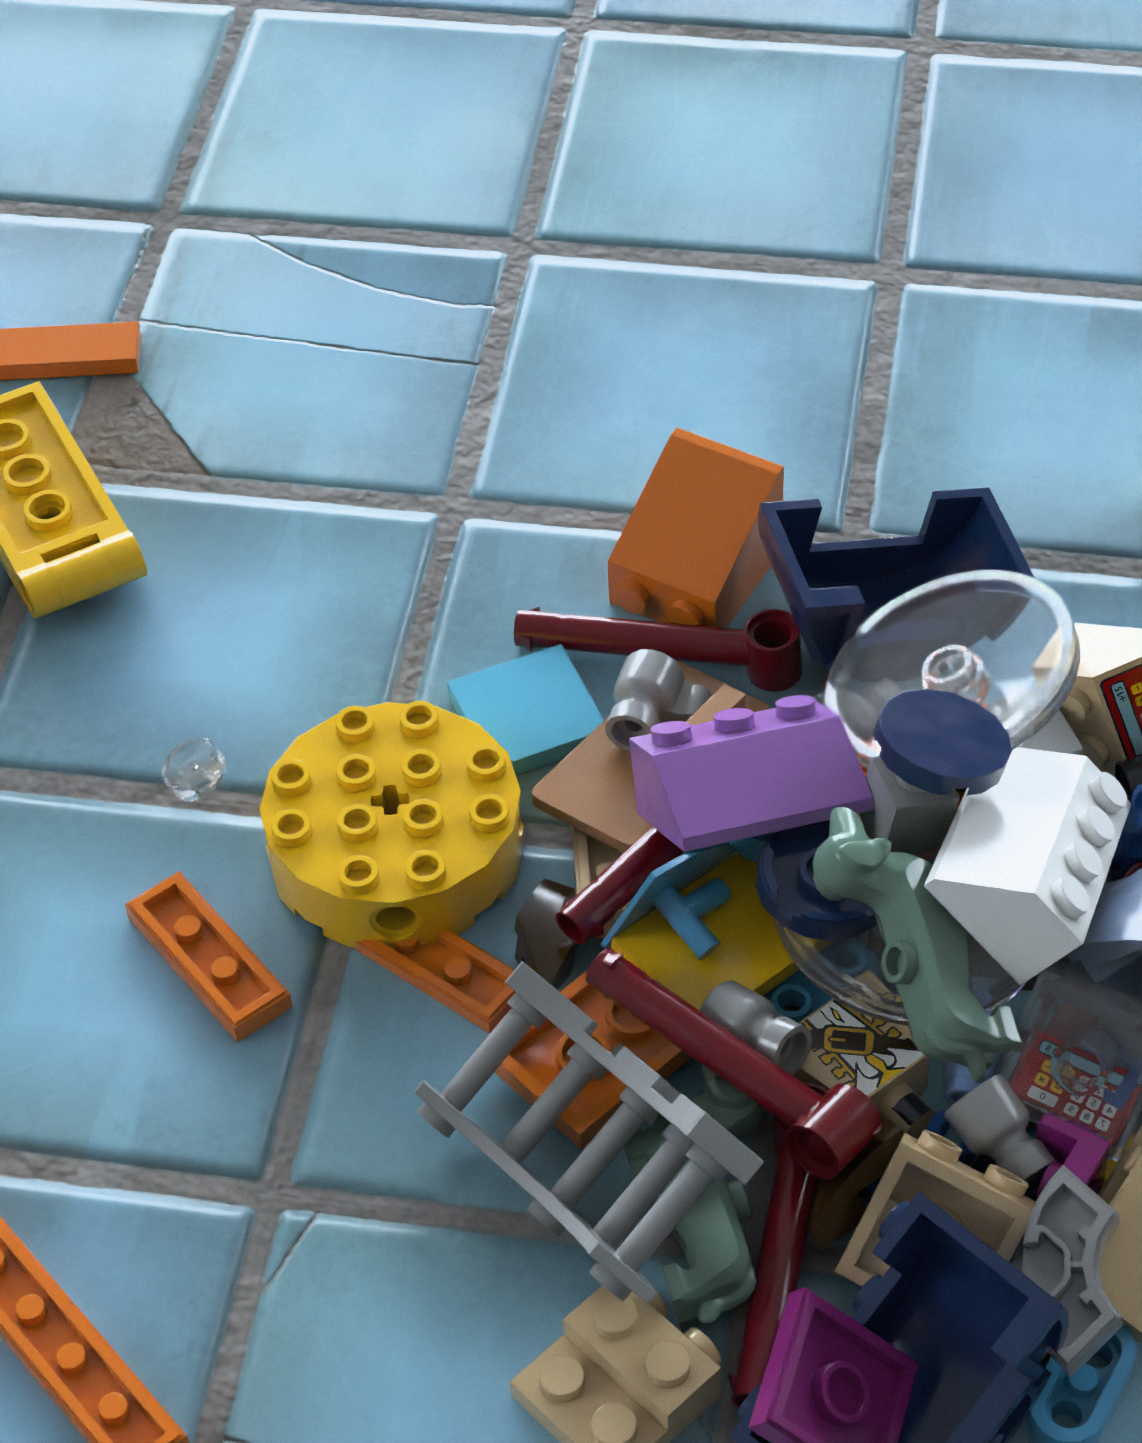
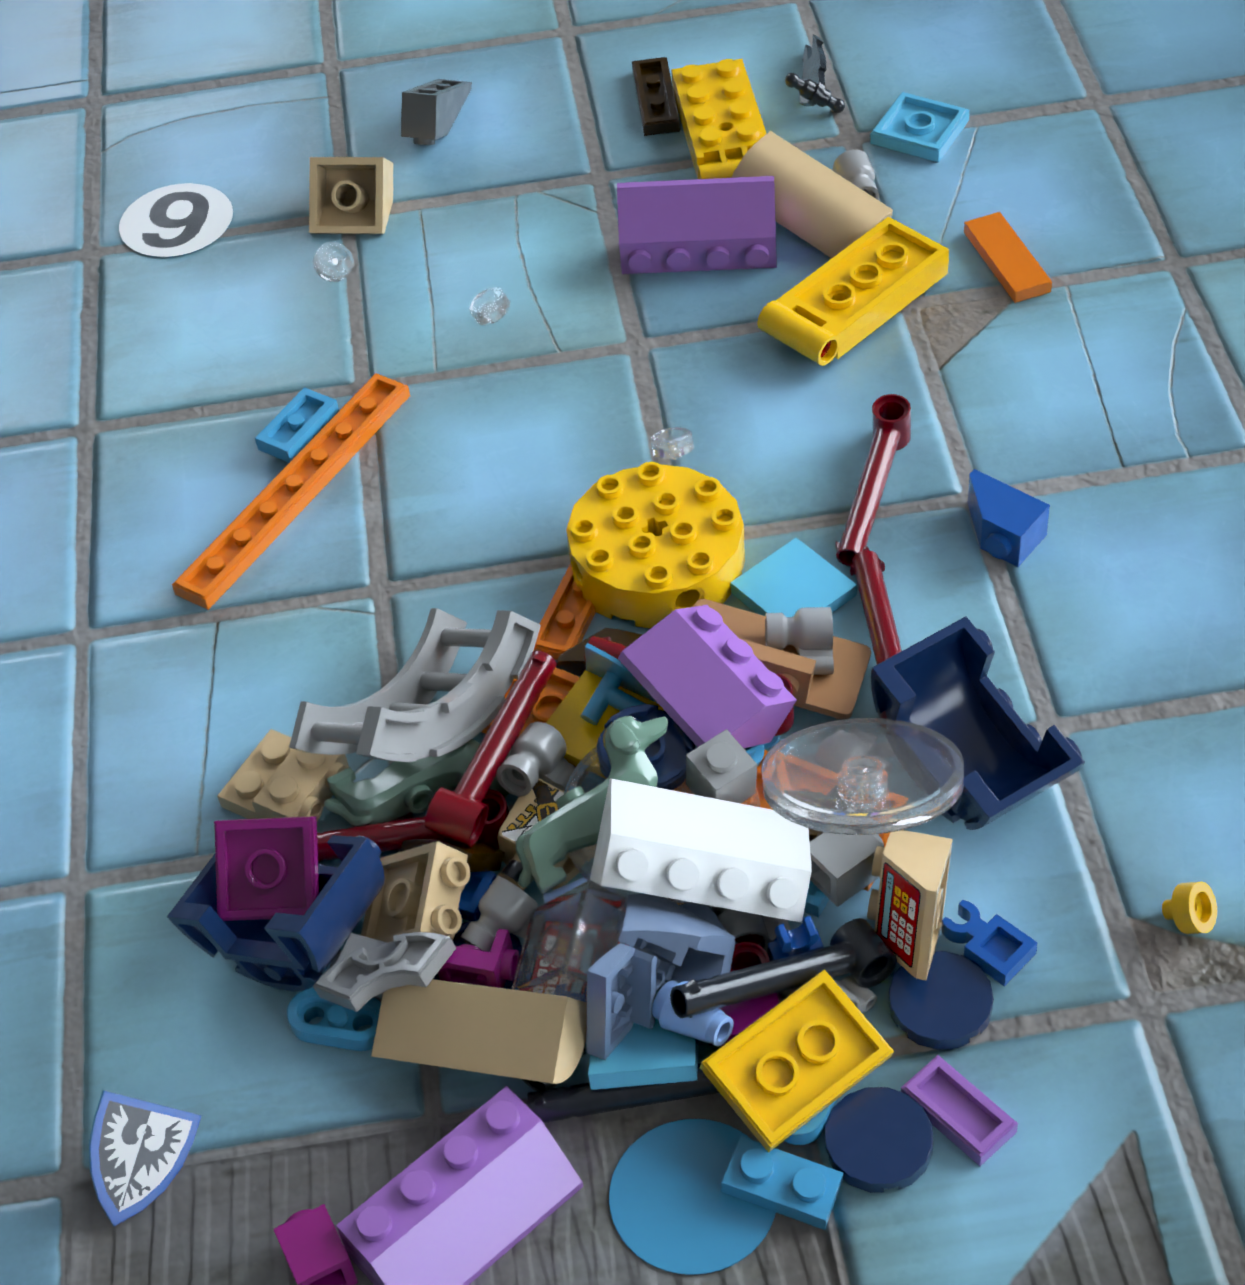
camera: 75 degrees right, 0 degrees up
(208, 956) = (536, 501): orange tile -> none
(308, 543) = (890, 433): none -> dark red piece
(524, 478) = (1005, 519): none -> blue slope
(695, 534) = (993, 598): orange slope -> none
(942, 742) = (746, 759): dark blue tile -> none

